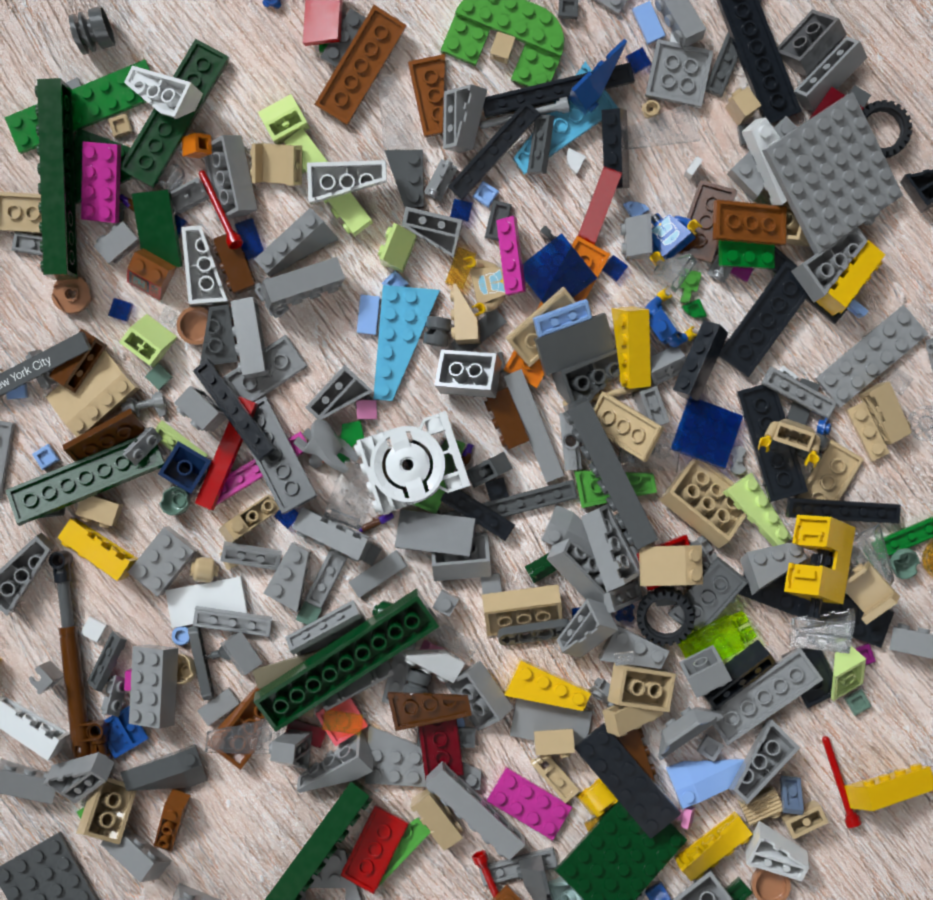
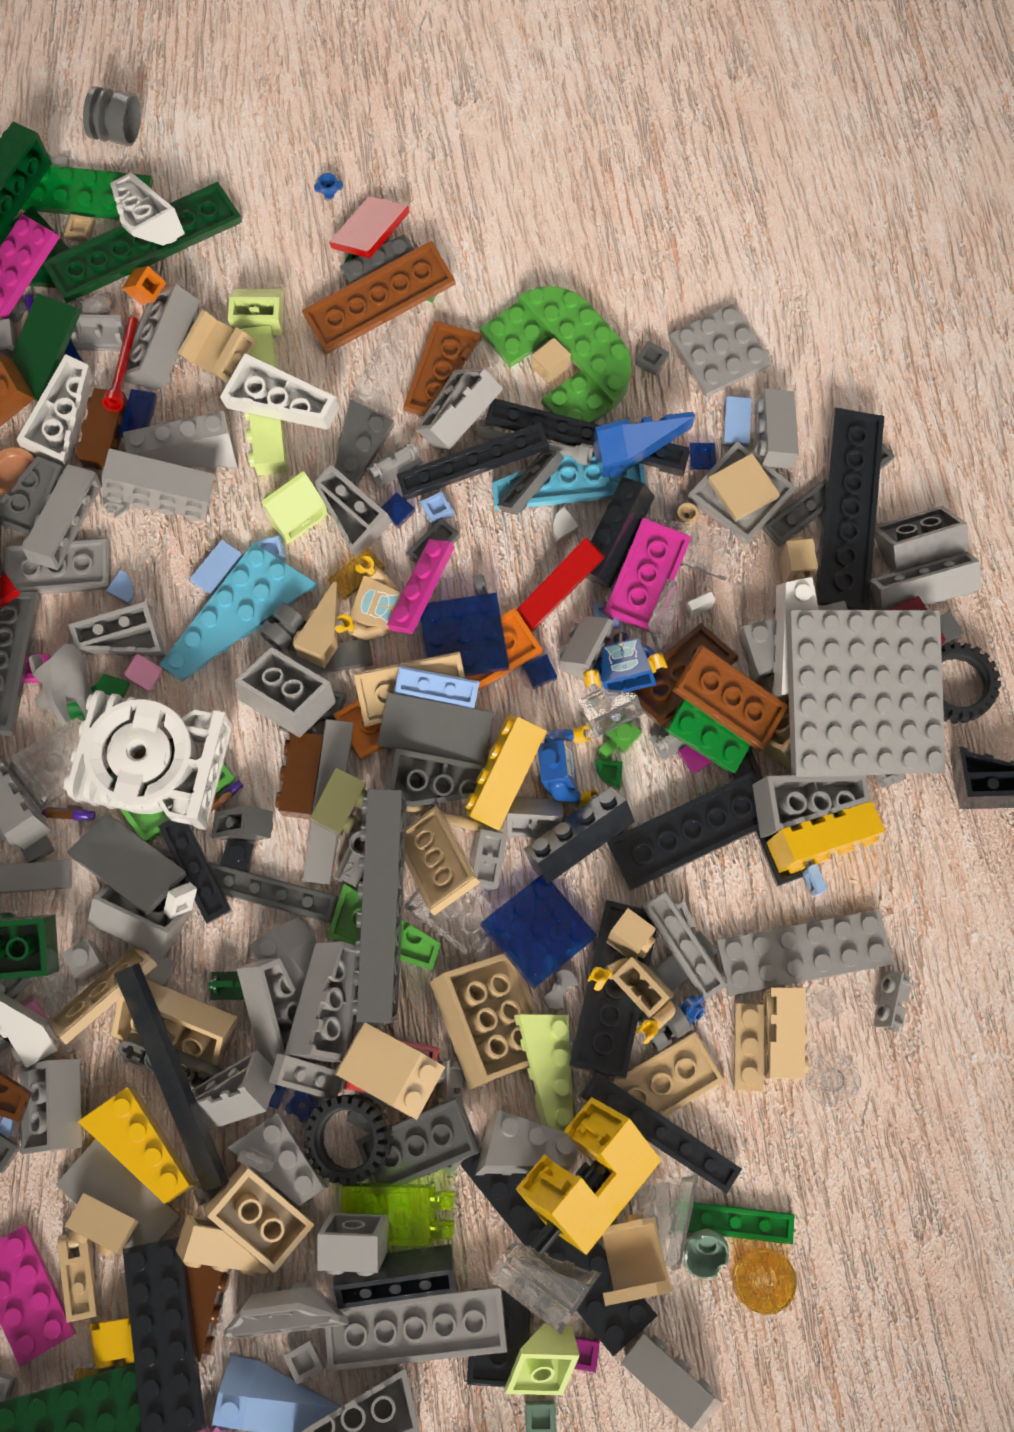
camera: 20 degrees right, 15 degrees down
(316, 362) = (122, 588): none -> light blue tile
(472, 617) = (96, 997): none -> tan tile
(482, 536) = (180, 900): none -> white plate
(545, 640) = (171, 1077): none -> black tile
(547, 425) = (339, 802): none -> olive brick
(651, 167) = (650, 562): none -> dark pink plate
(677, 188) = (665, 614): none -> clear tile
(679, 70) = (743, 487): none -> tan tile
(769, 407) = (632, 935): none -> tan brick

